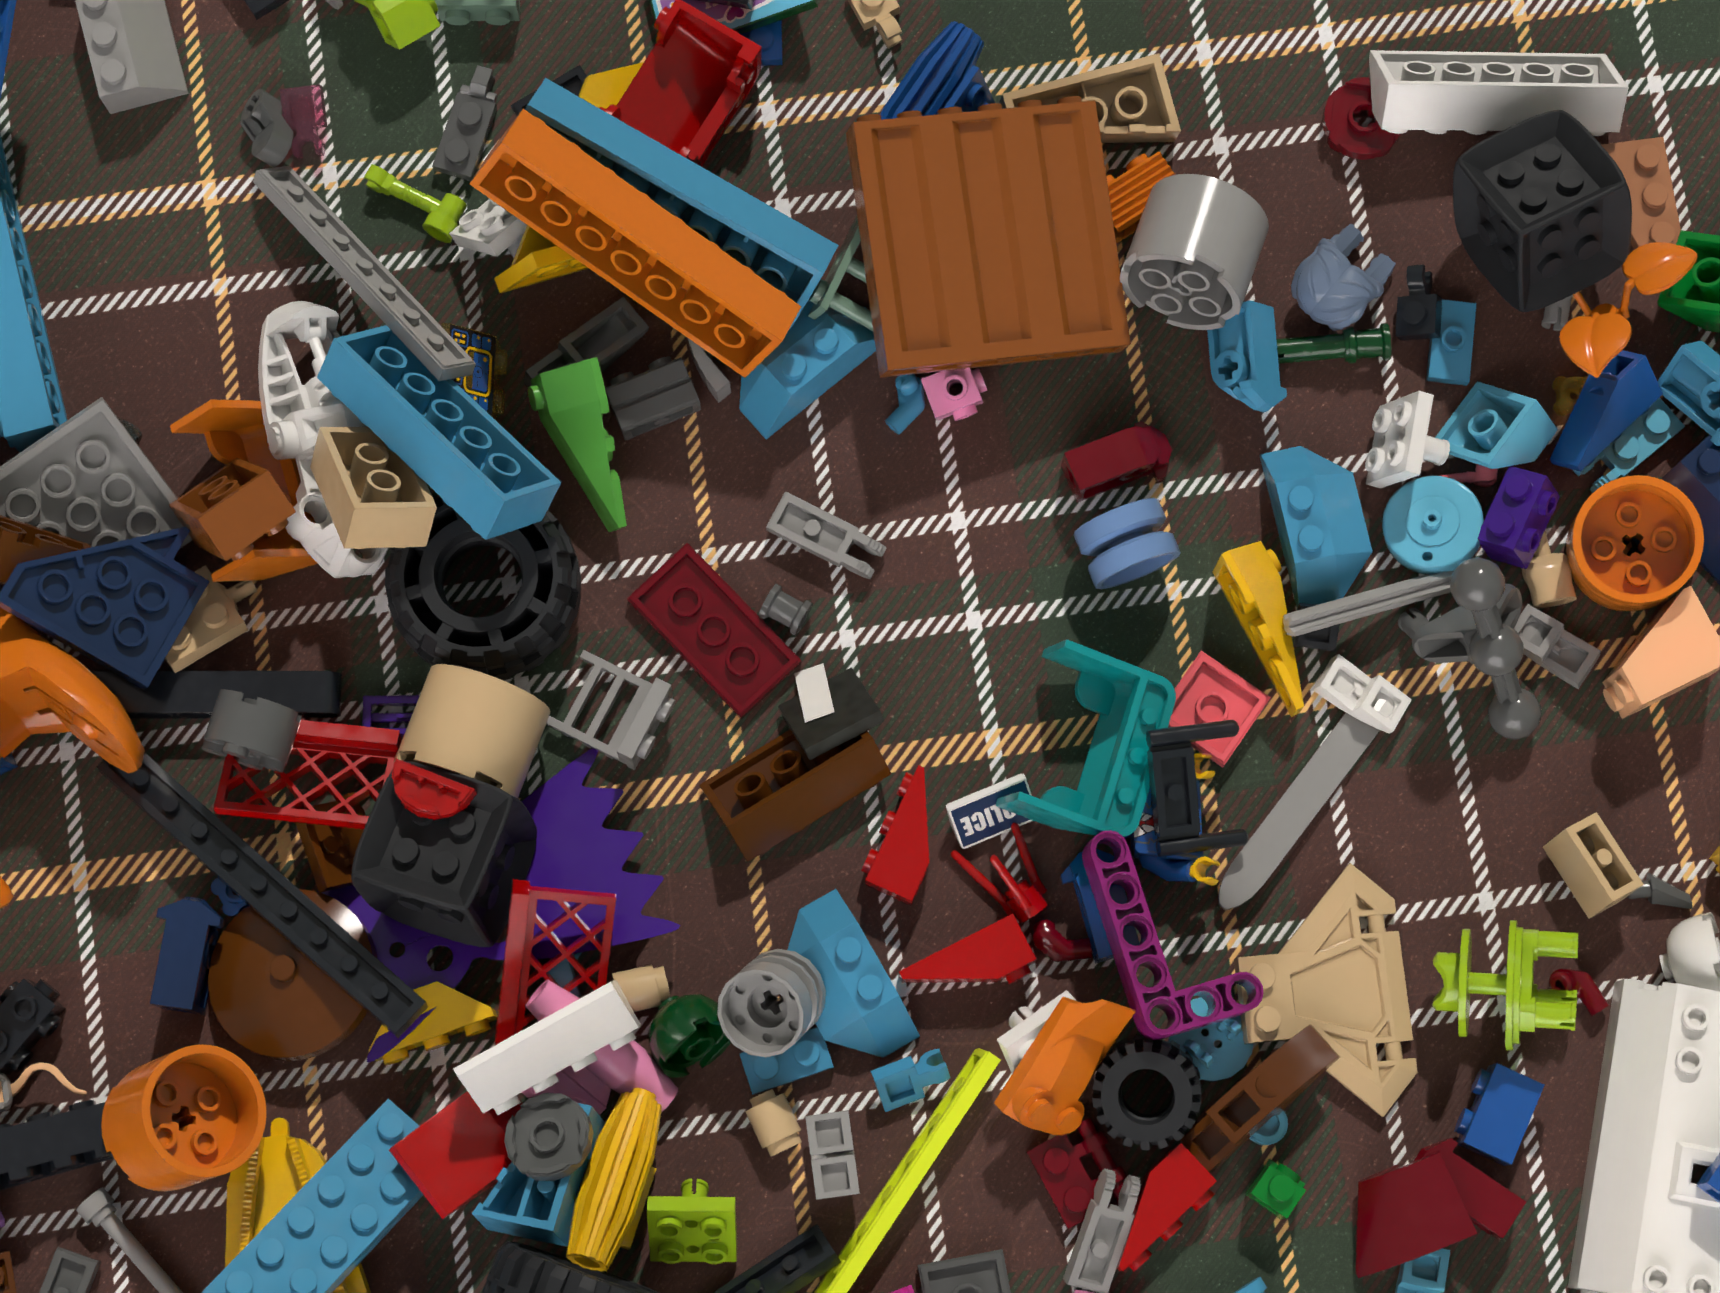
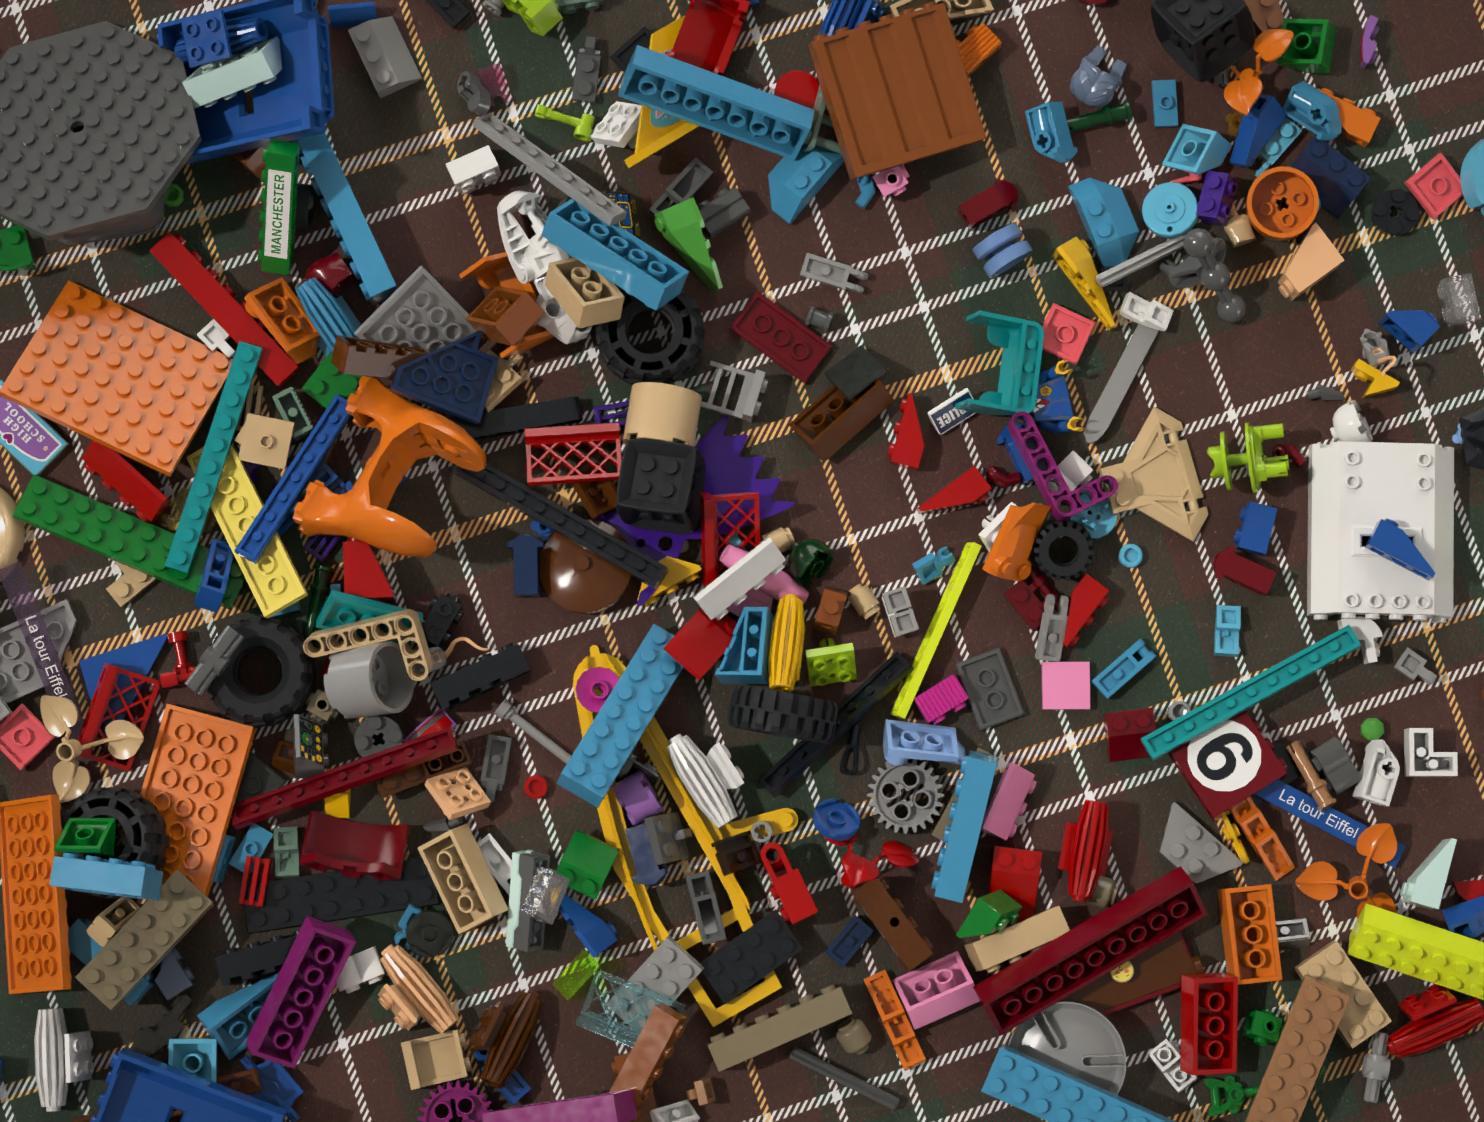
camera: 15 degrees left, 5 degrees up
(211, 1099) = (548, 651): orange brick -> none
(238, 256) = (473, 170): none -> white slope
(252, 730) = (542, 436): dark grey brick -> none
(253, 1183) = (593, 679): none -> dark pink dish
(429, 793) = (650, 454): red tile -> none
(549, 1137) = (748, 627): dark grey tile -> none
(635, 244) = (703, 130): orange brick -> none
(709, 1128) = (830, 611): none -> dark orange torso
(710, 374) = (744, 178): light grey slope -> none
(756, 1017) = (848, 547): light grey wheel -> none
(800, 1061) = (864, 567): dark azure plate -> none
(814, 692) = (843, 362): white sticker -> none
(822, 208) = (798, 87): none -> red tile
(860, 998) = (889, 517): dark azure wedge -> none
(1023, 898) = (978, 456): red plant -> none
(1175, 789) = (1052, 382): black plate -> none
(1188, 956) = (1074, 471): none -> white brick
(1195, 251) = (1013, 79): light grey brick -> none
(1259, 1097) = (1125, 541): reddish brown slope -> none
(1277, 1189) = (1142, 590): green brick -> none
(1403, 441) = (1146, 166): white plate -> none
(1408, 1214) = (1214, 590): dark red slope -> none
(1420, 311) = (1144, 90): black plate -> none
(1554, 647) = (1247, 267): light grey slope -> none
(1592, 865) = (1286, 385): tan brick -> none

